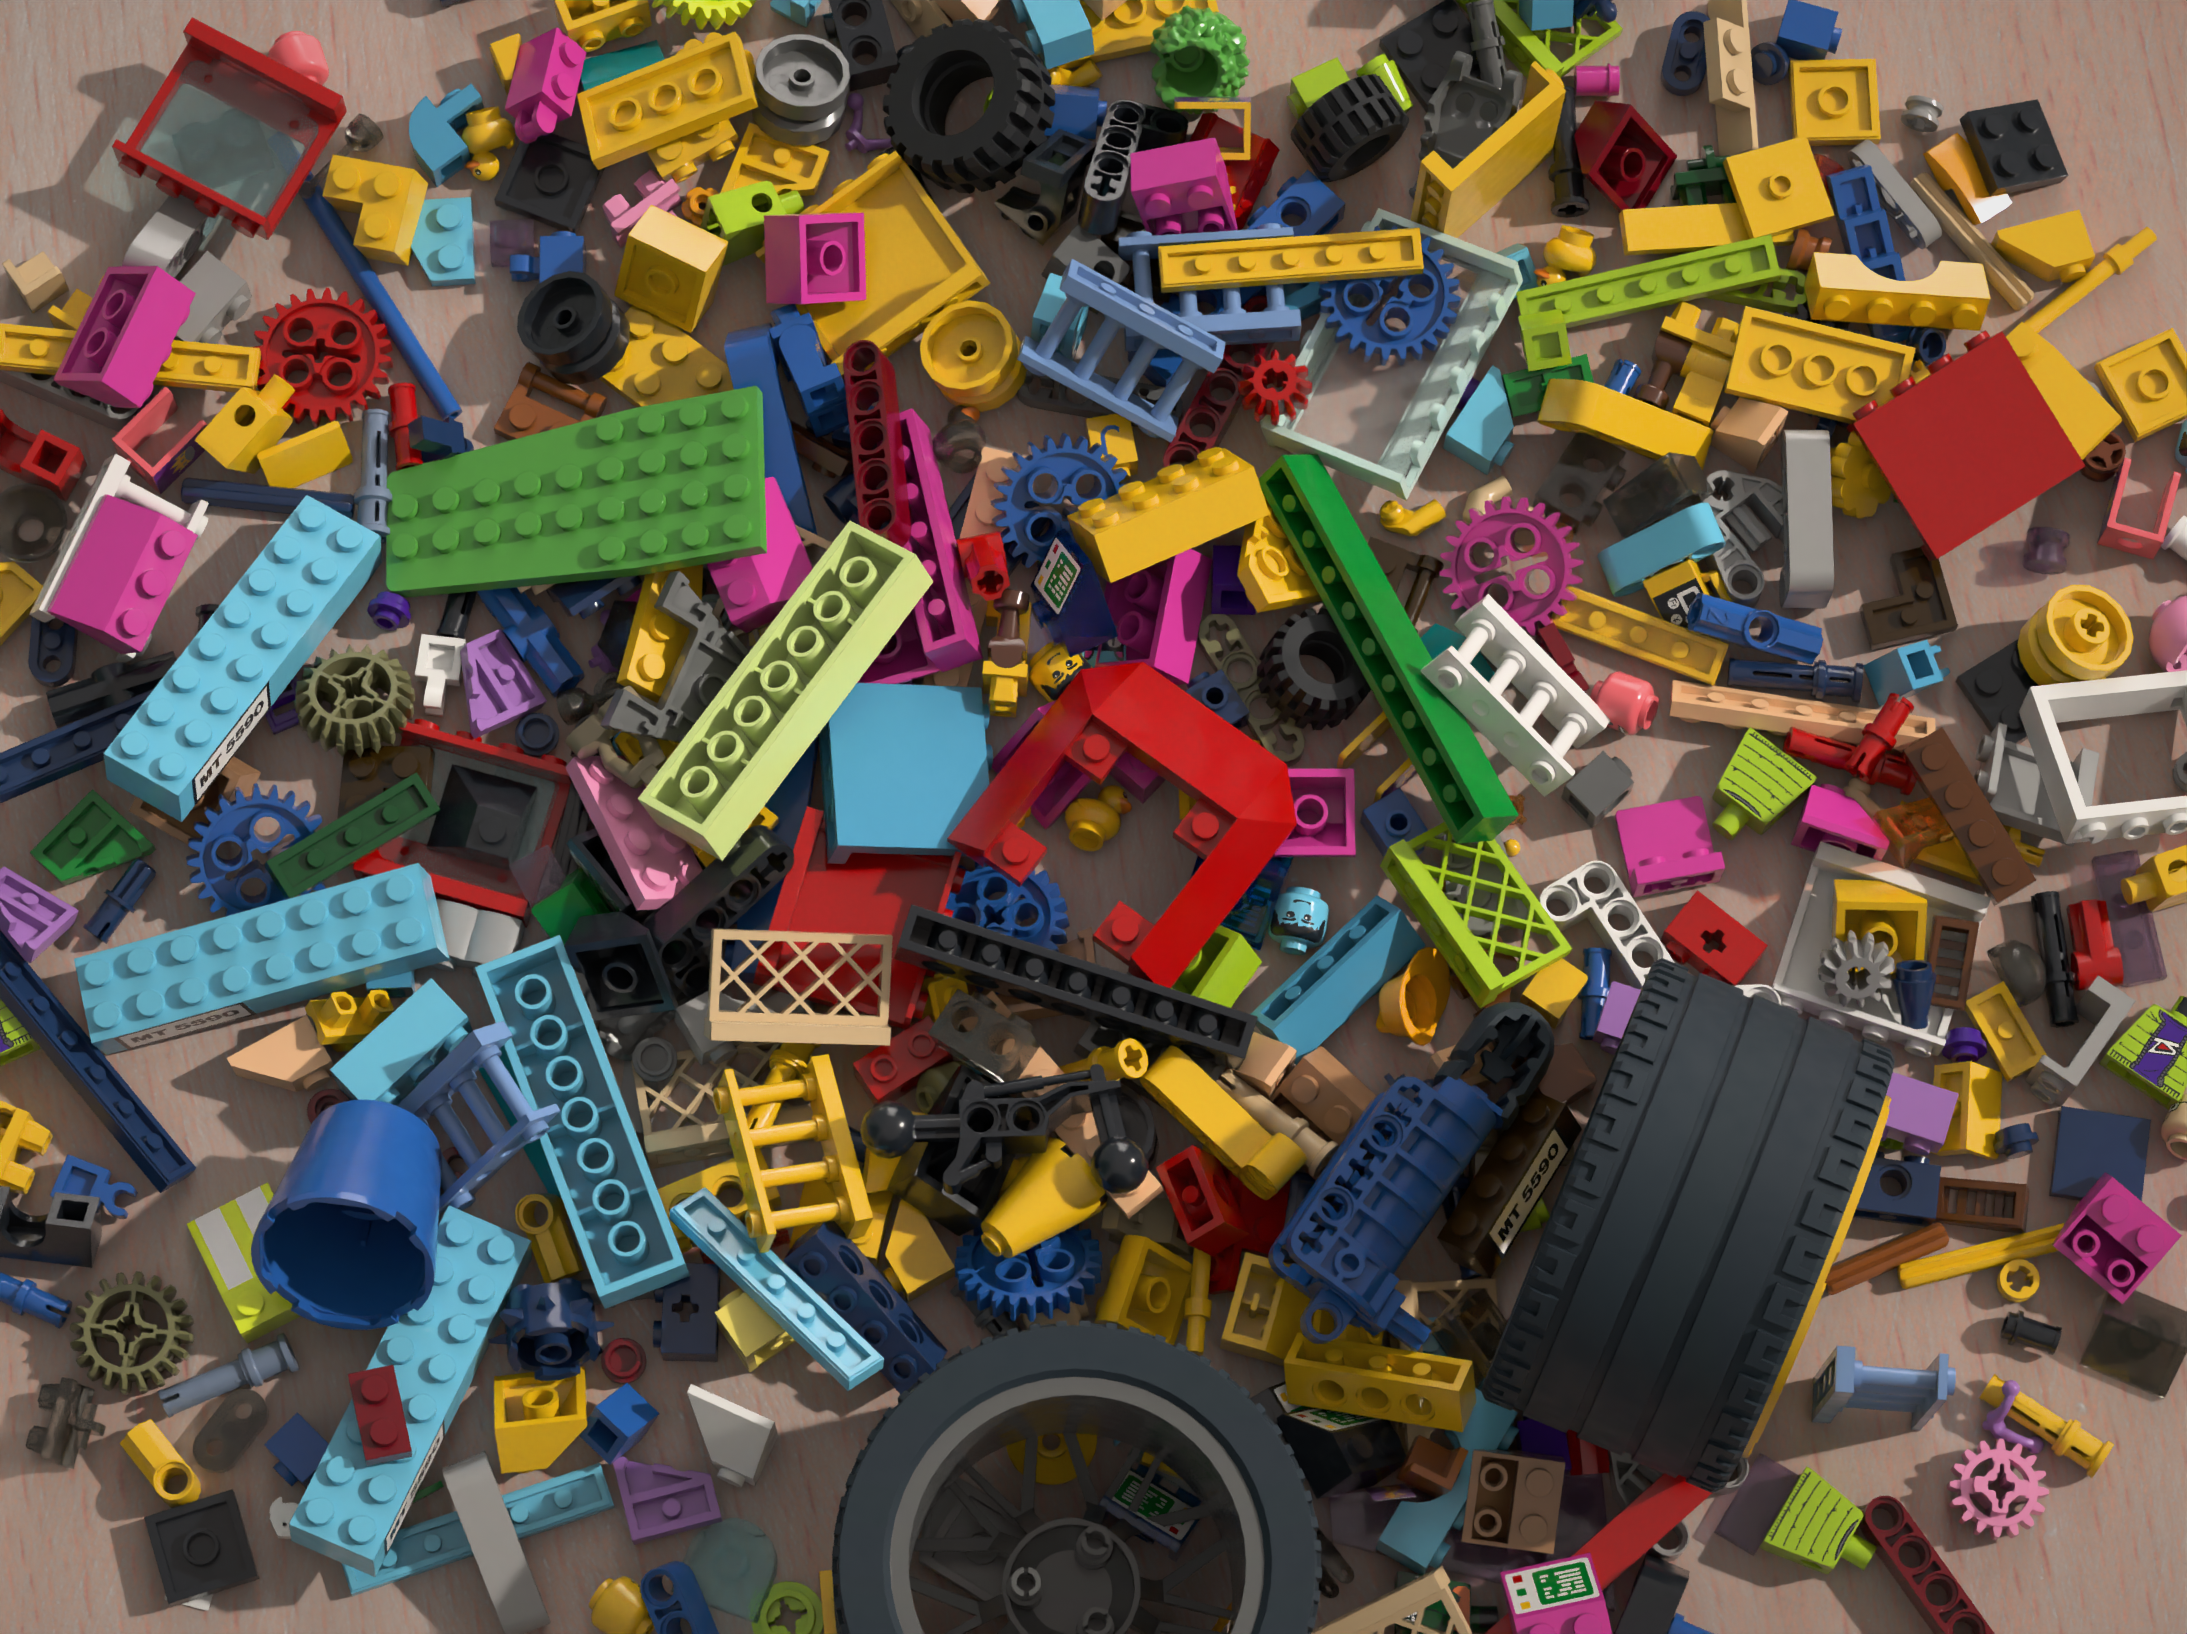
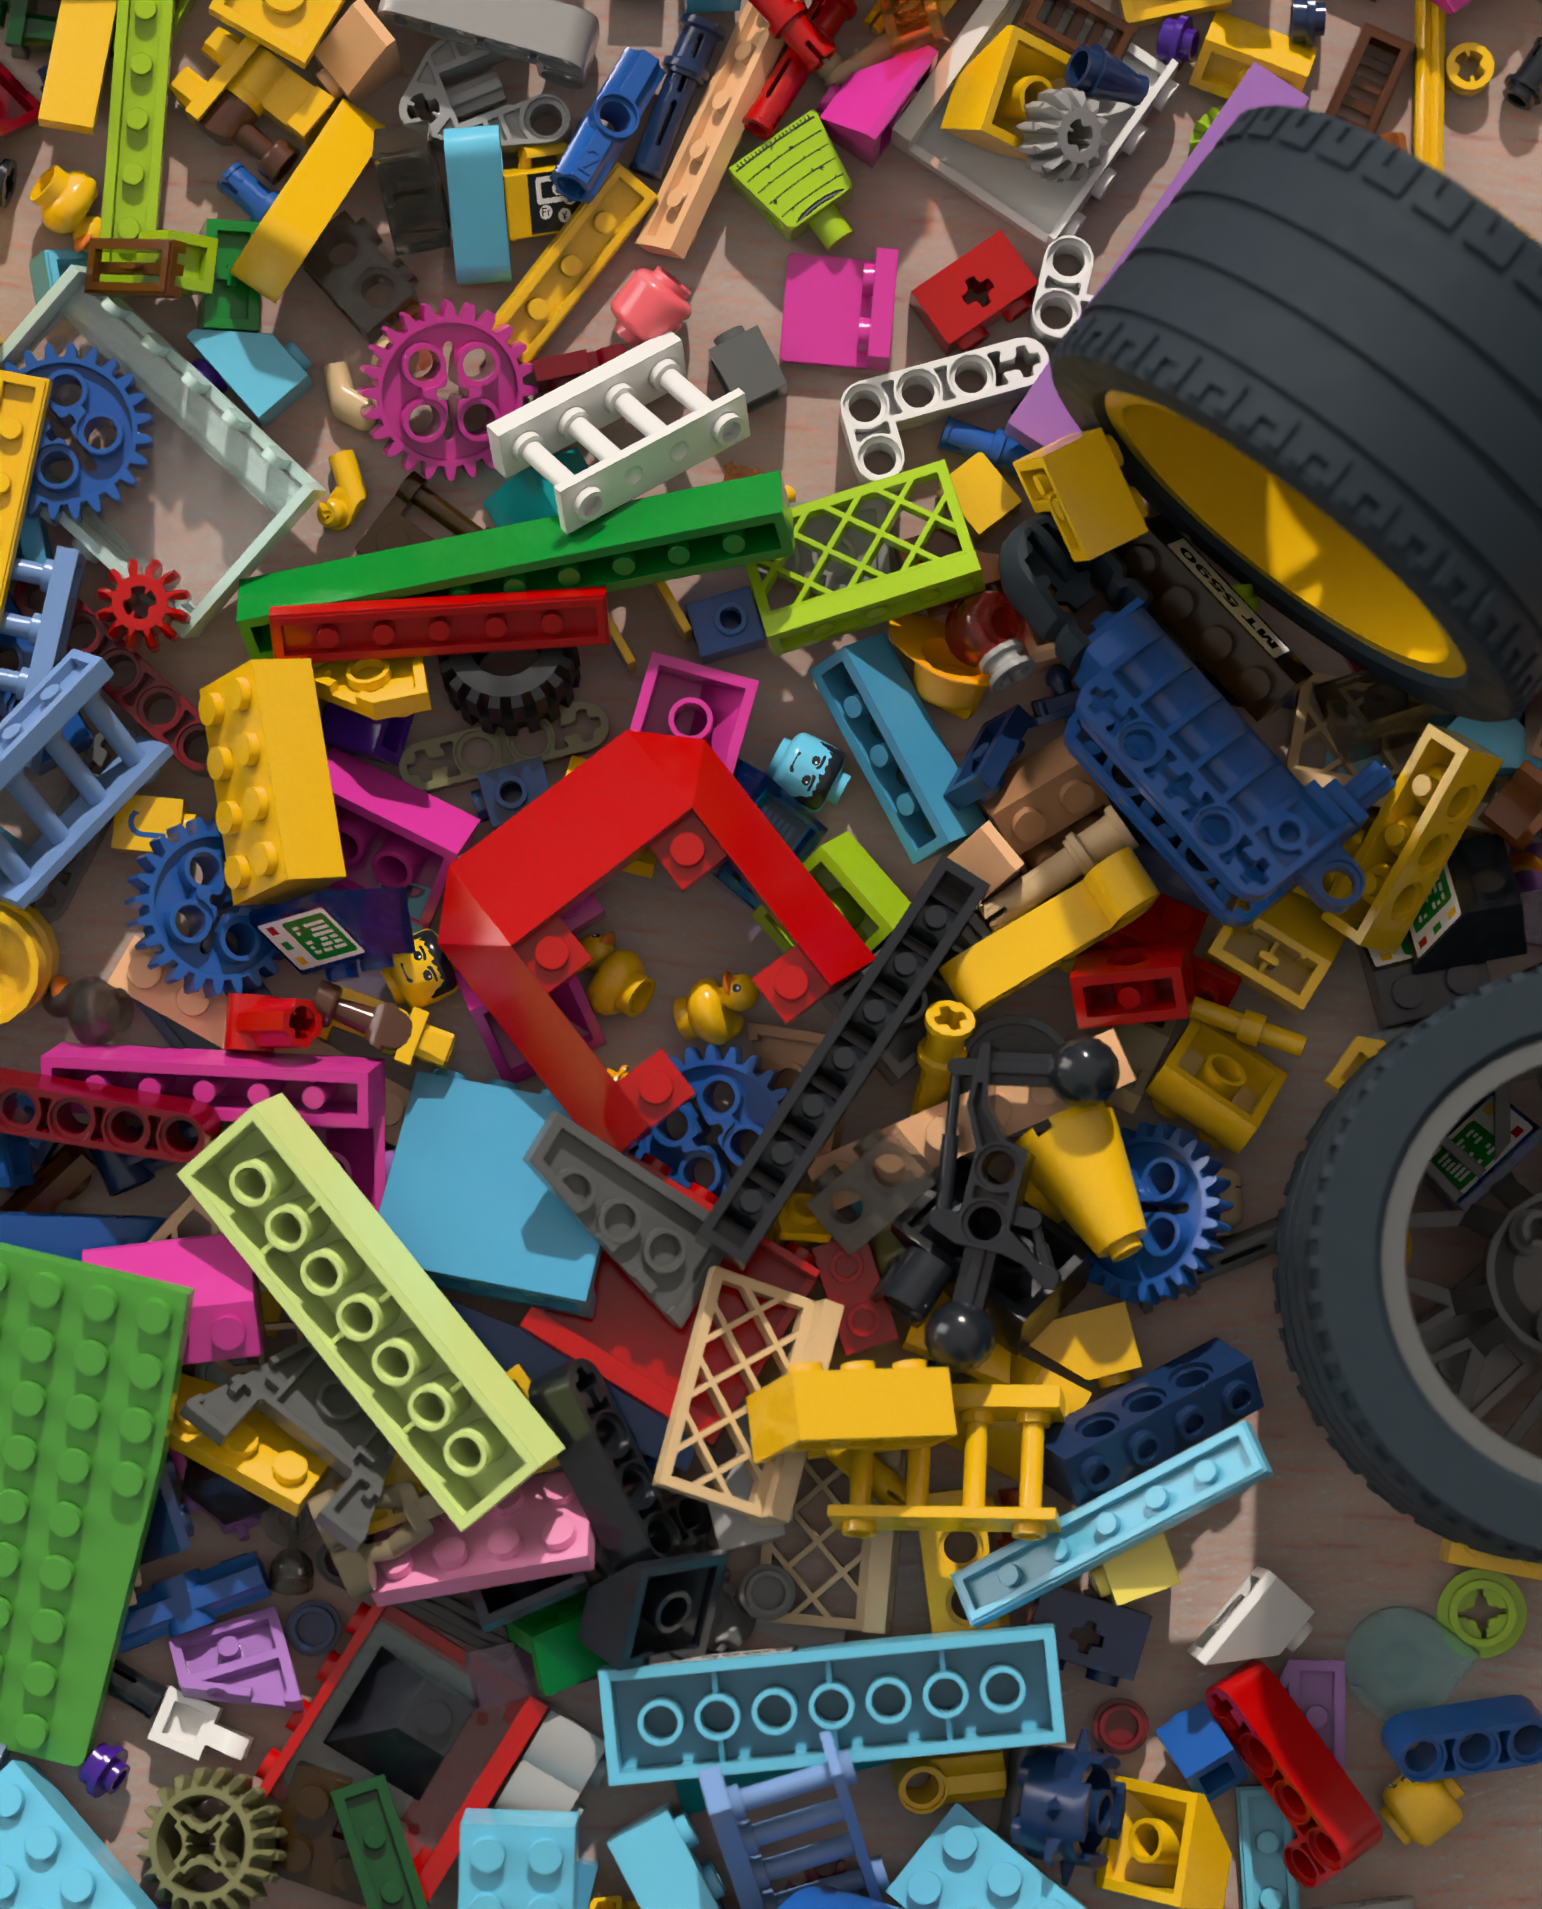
camera: 75 degrees left, 10 degrees up
(623, 1496) = (1296, 1772): none -> red beam
(810, 1061) = (851, 1409): none -> yellow wedge
(914, 858) = (628, 1213): none -> dark grey wing
(919, 1088) = (913, 1284): none -> black piece
(1091, 895) = (711, 1008): none -> yellow animal
(1324, 603) = (441, 625): none -> red tile
(1362, 1054) = (988, 757): none -> dark blue plate
(1423, 1035) = (1007, 665): none -> light grey bush
(1446, 1014) = (980, 625): none -> clear red head
(1532, 325) = (166, 270): none -> reddish brown tile
(1569, 1043) = (1084, 492): none -> yellow brick

